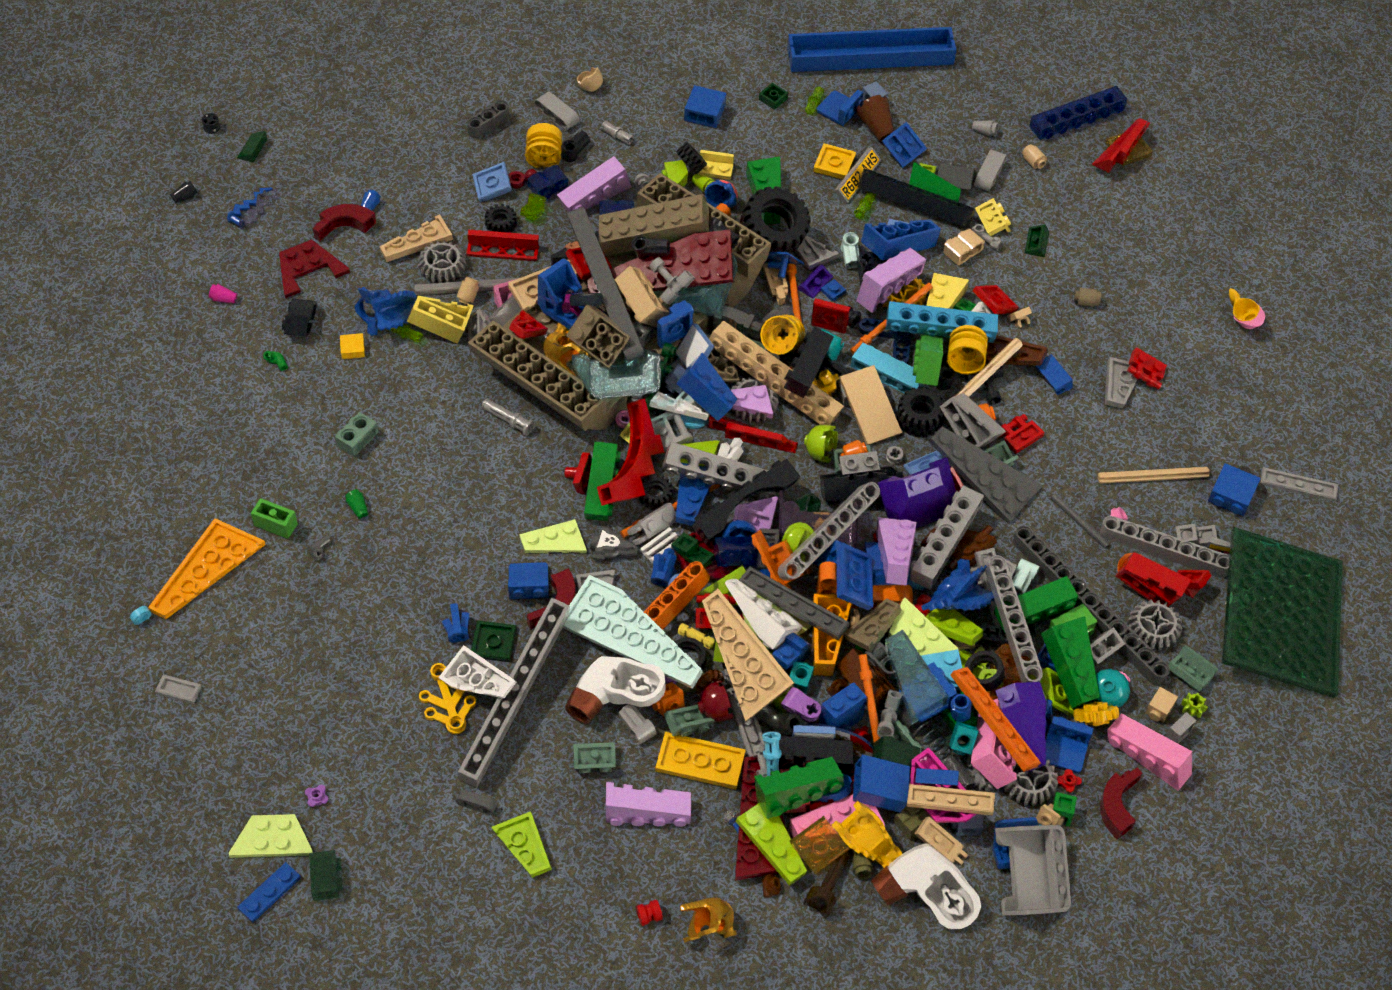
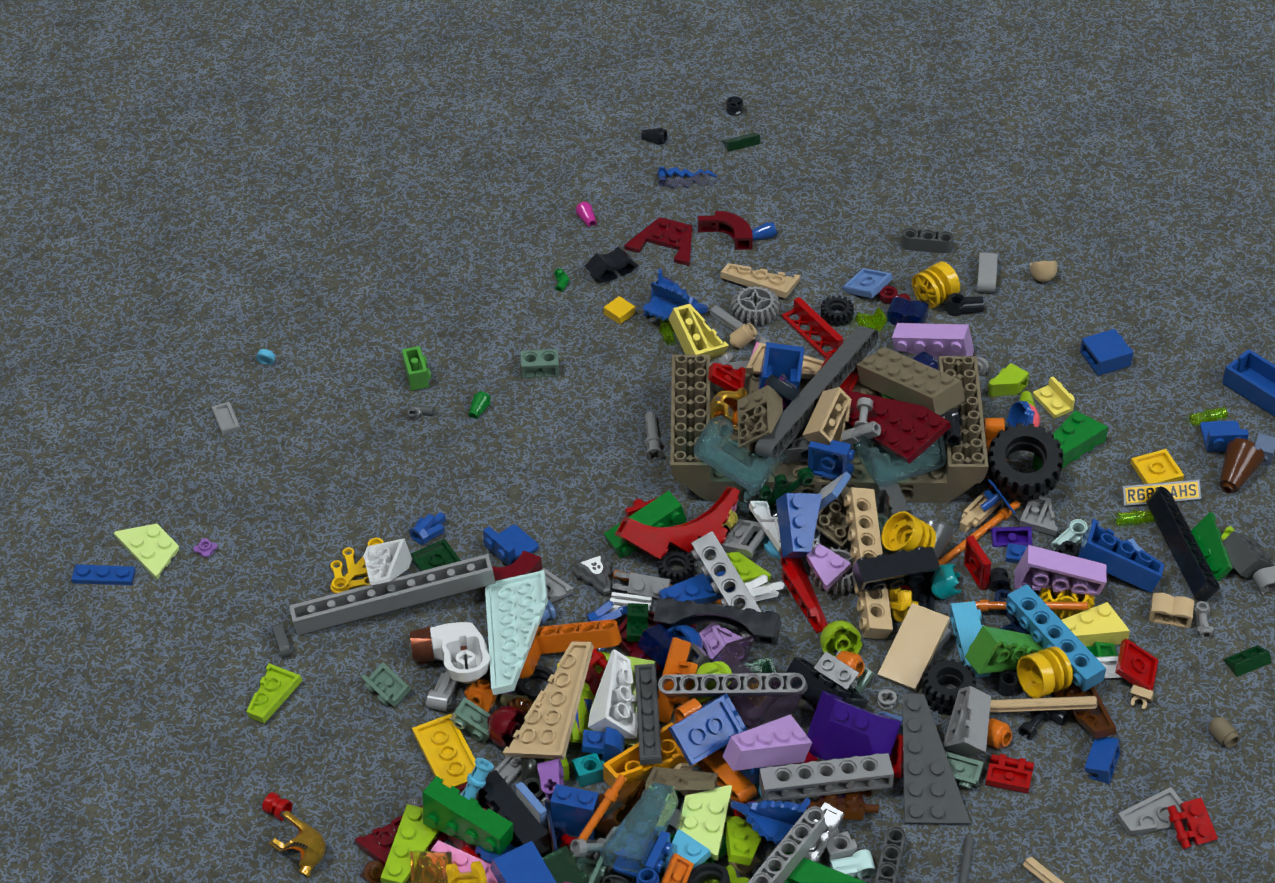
camera: 55 degrees right, 10 degrees down
(210, 559) = (351, 361): light orange wing -> none
(324, 875) = (141, 593): clear green brick -> none
(555, 538) = (568, 537): yellowish green wing -> none
(617, 133) = (1012, 320): light grey pin -> none
(647, 806) = (368, 742): lavender wedge -> none
(651, 247) = (878, 390): black piece -> none
(691, 157) = (1034, 374): black tyre -> none
(773, 96) = (1178, 387): dark green piece -> none
(904, 144) = (1233, 500): blue slope -> none
(992, 217) = (1232, 611): light yellow bracket -> none

